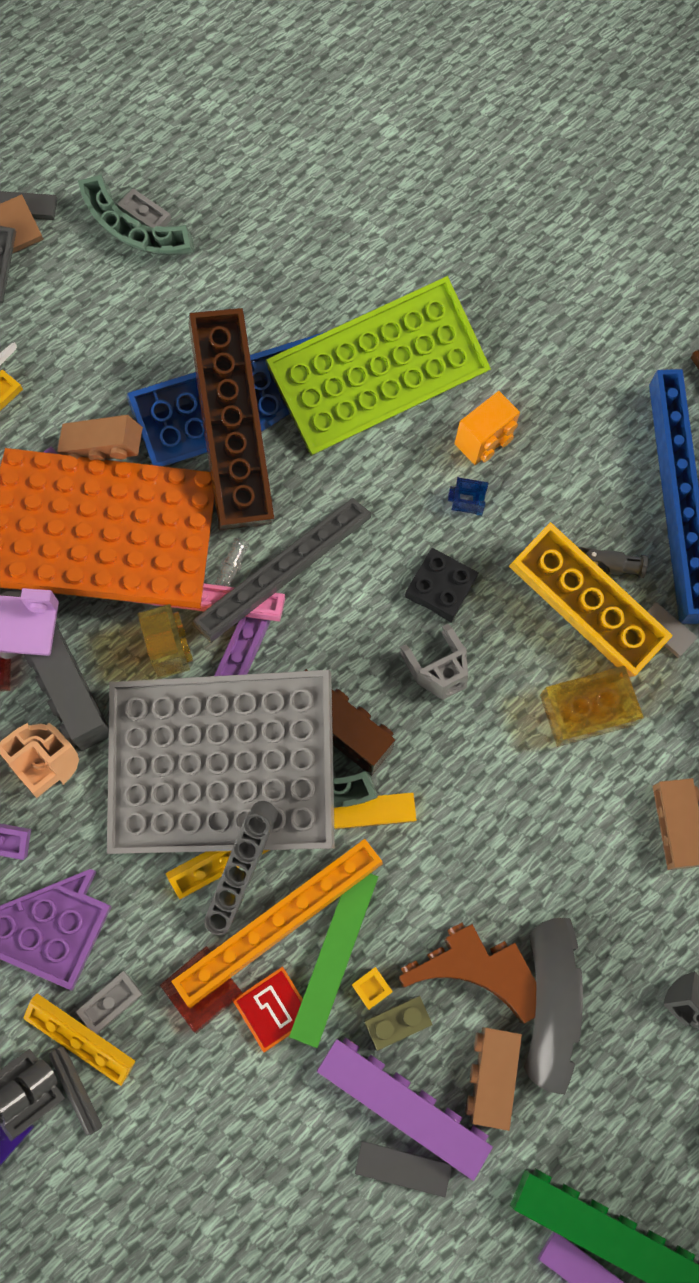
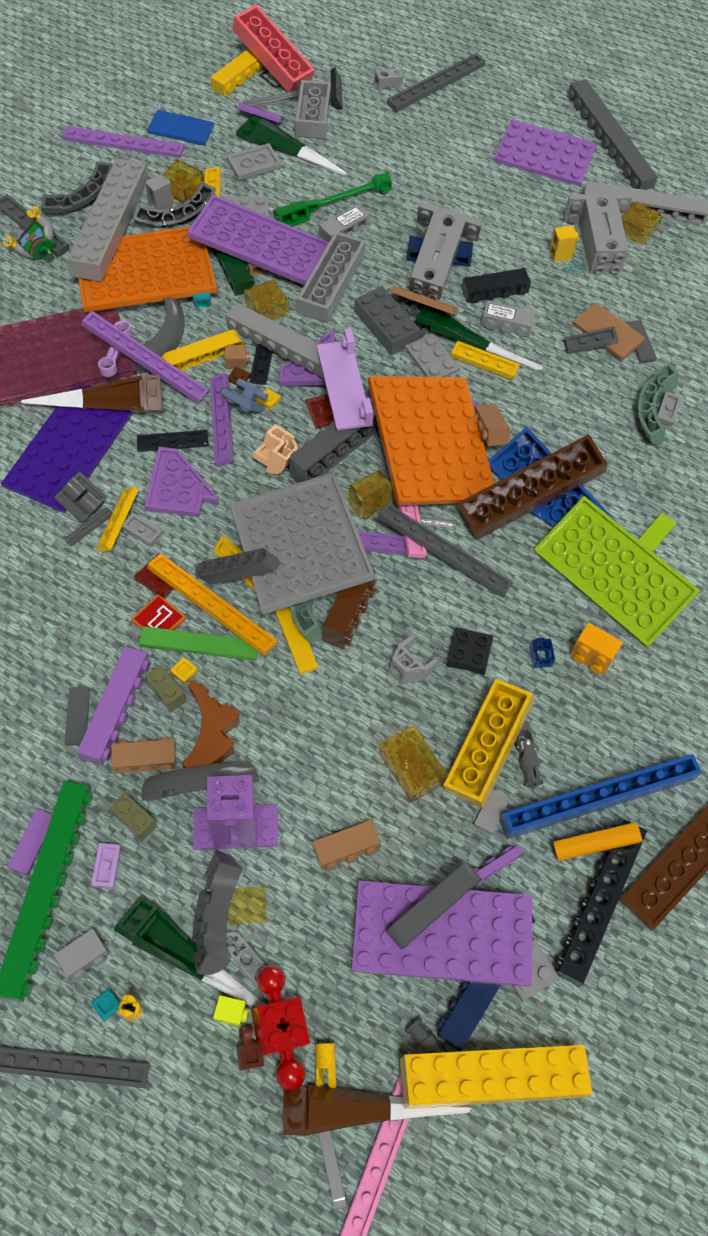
camera: 75 degrees right, 10 degrees down
(329, 299) = (657, 531): none -> lime tile
(586, 1112) = (133, 817): none -> olive piece
(636, 968) = (233, 817): none -> medium lavender brick
(645, 1166) = (106, 866): none -> lavender plate

